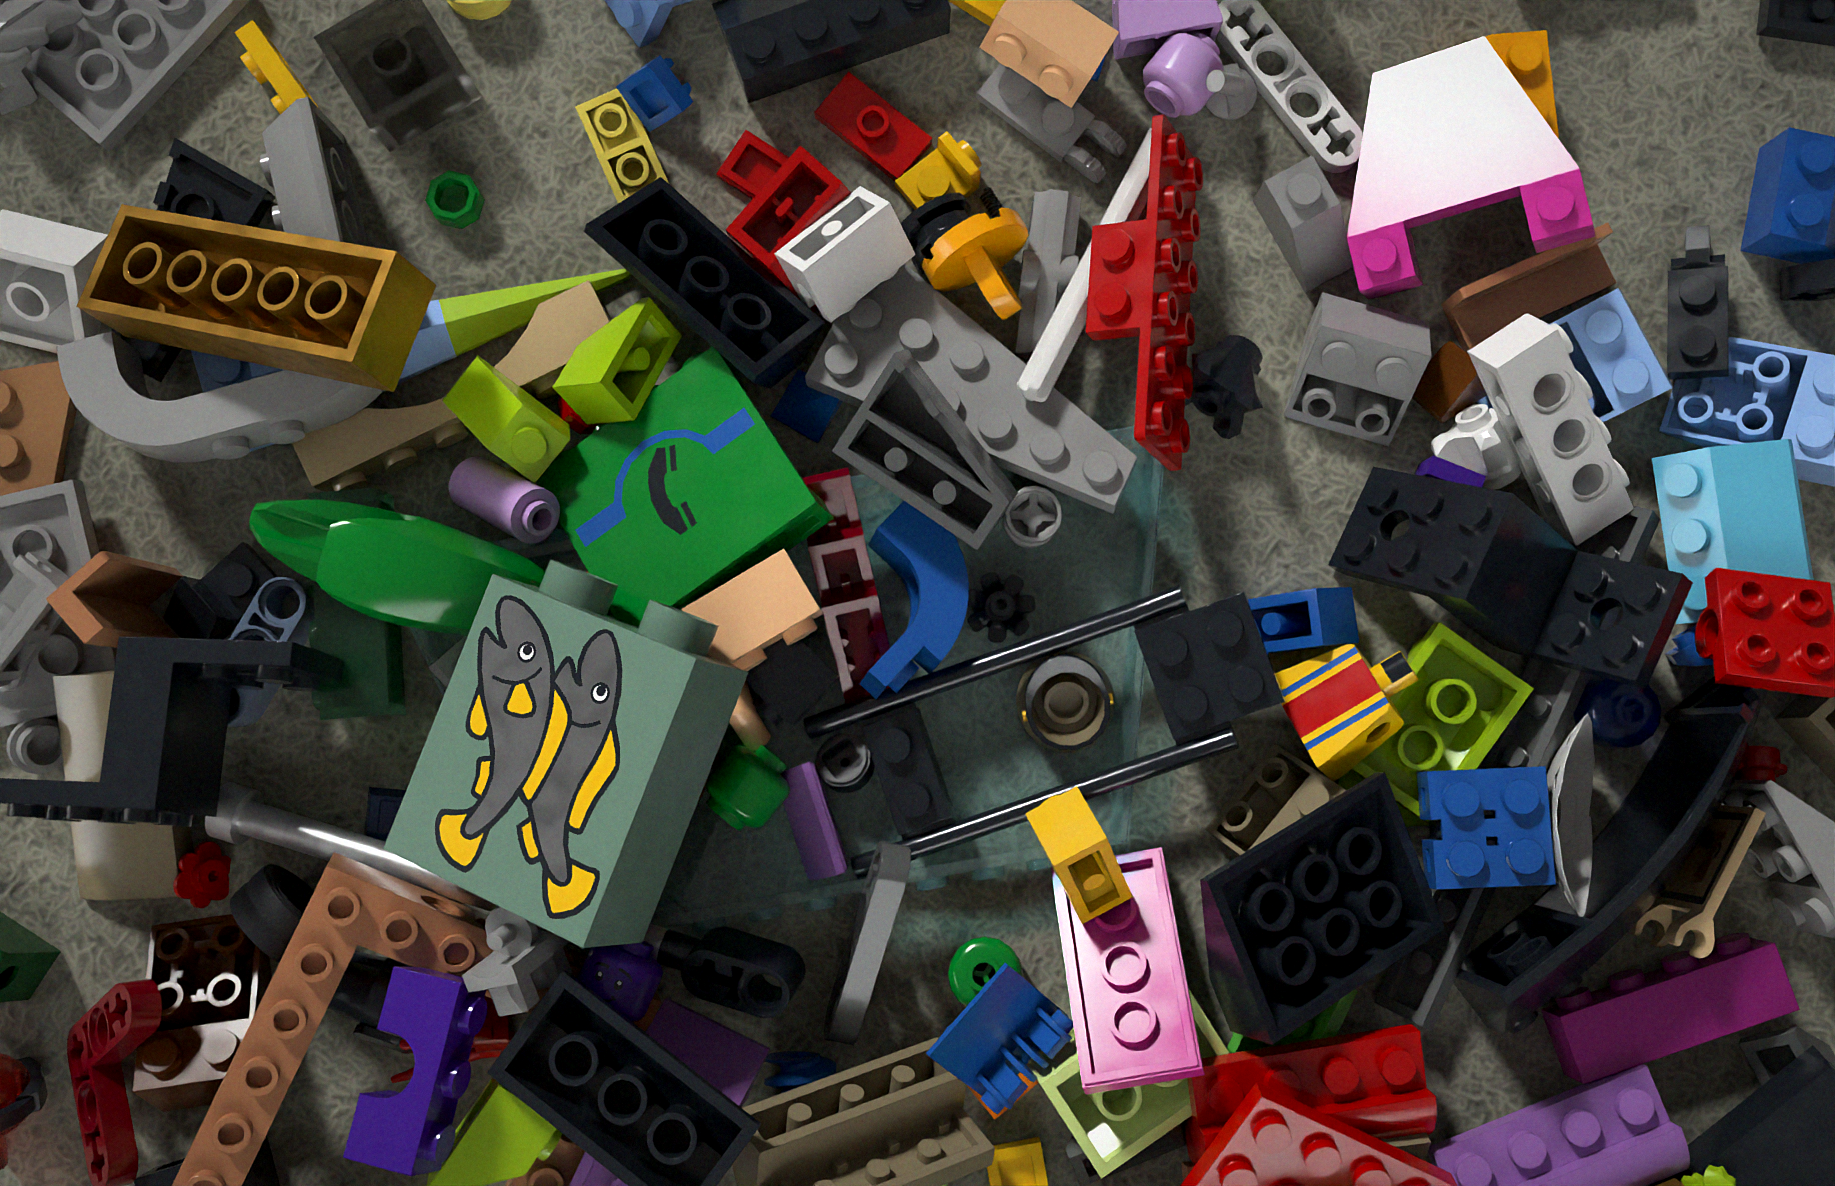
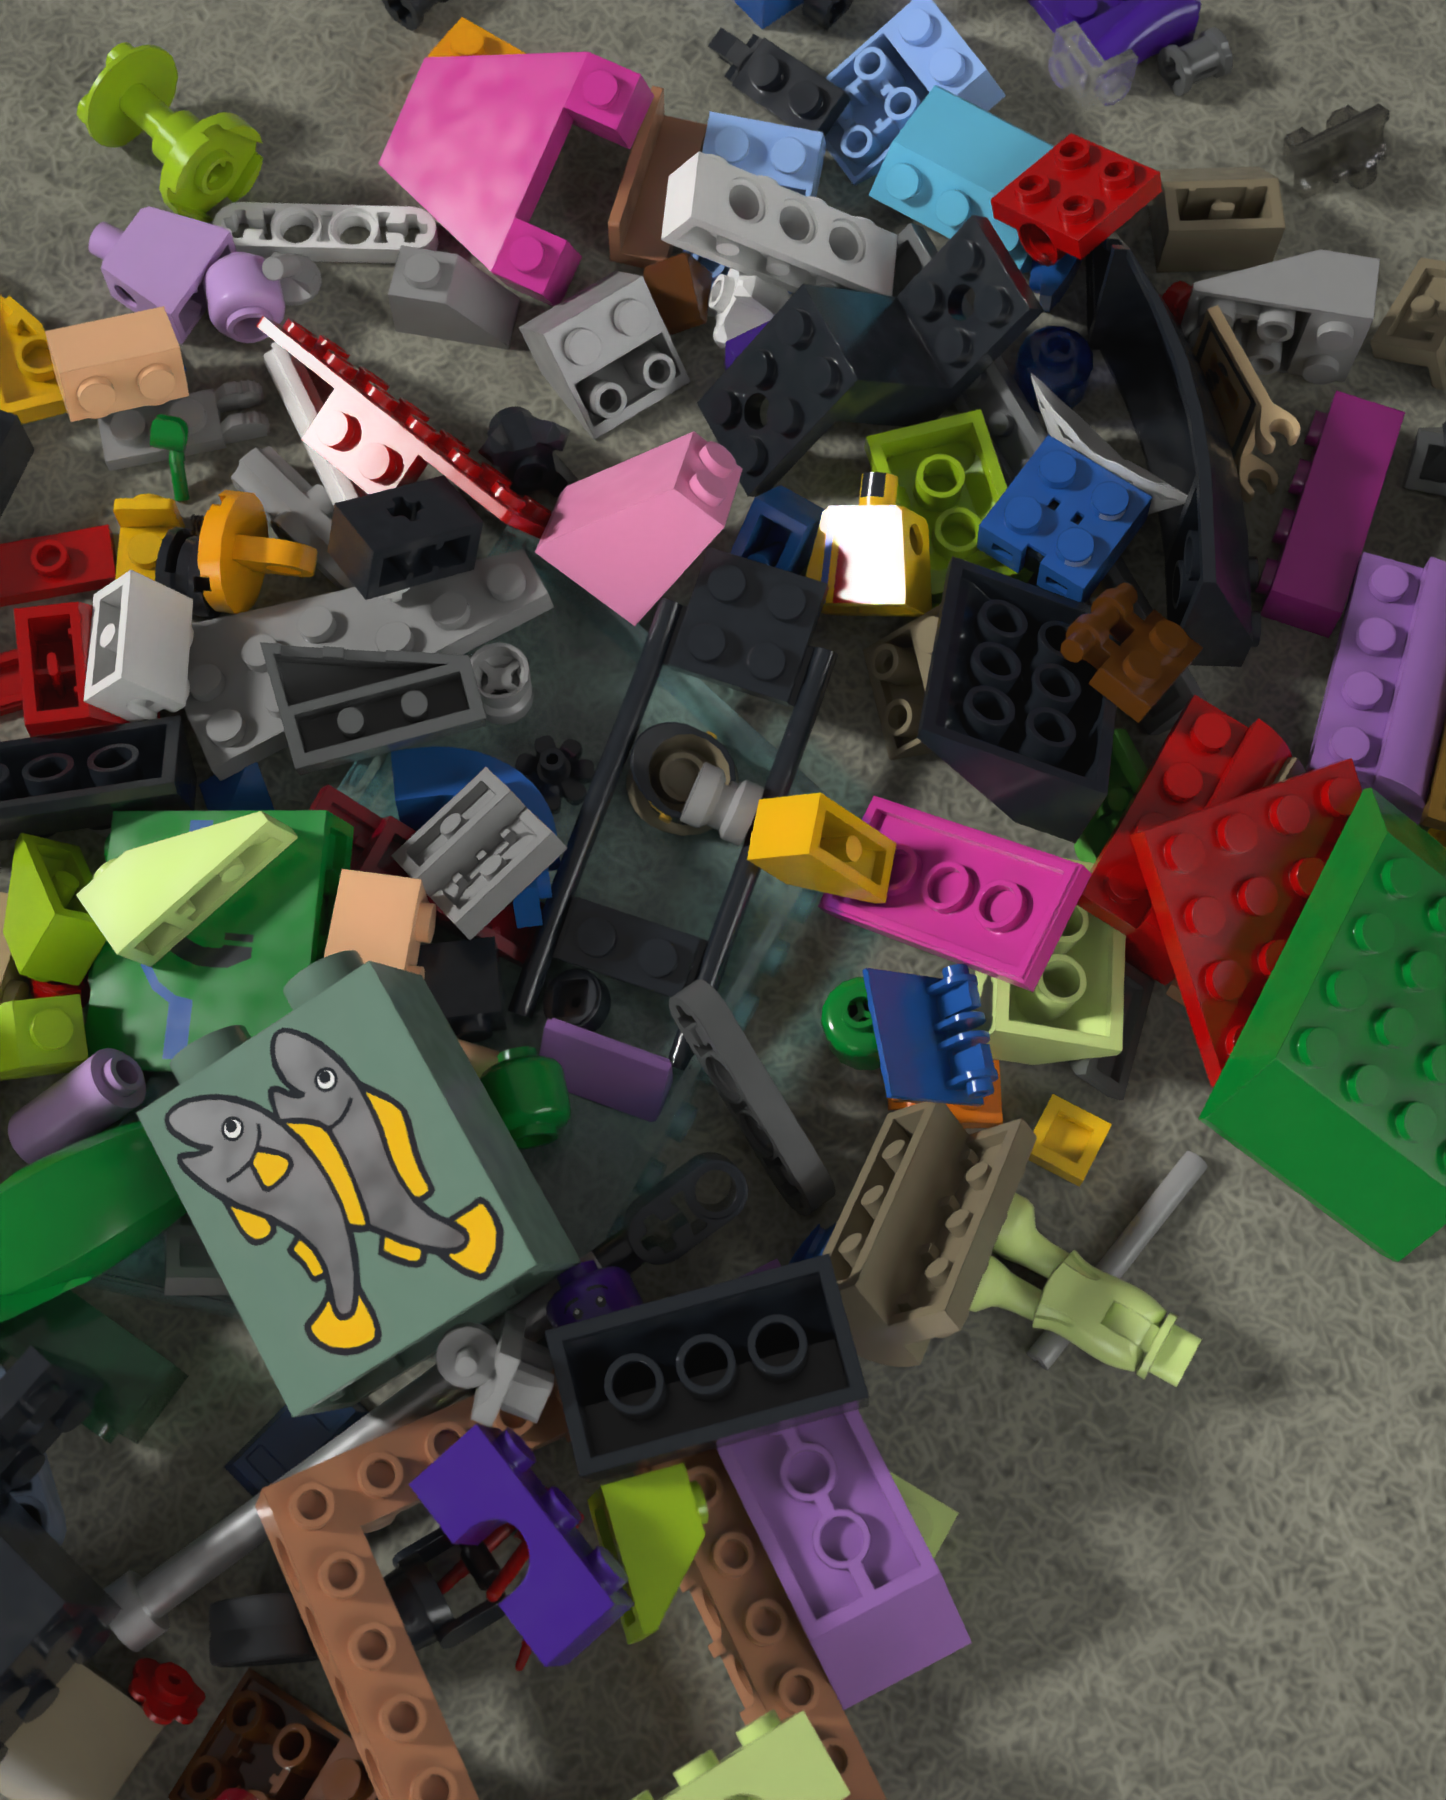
camera: 50 degrees left, 15 degrees down
(669, 437) = (171, 886): none -> yellowish green slope
(879, 624) = (479, 852): none -> light grey slope
(1030, 123) = (172, 435): none -> green hand
(1058, 755) = (722, 806): none -> light grey wheel
(1069, 372) = (404, 536): none -> black brick
(1227, 524) = (641, 522): none -> bright pink slope
(1416, 978) = (1146, 662): none -> reddish brown plate

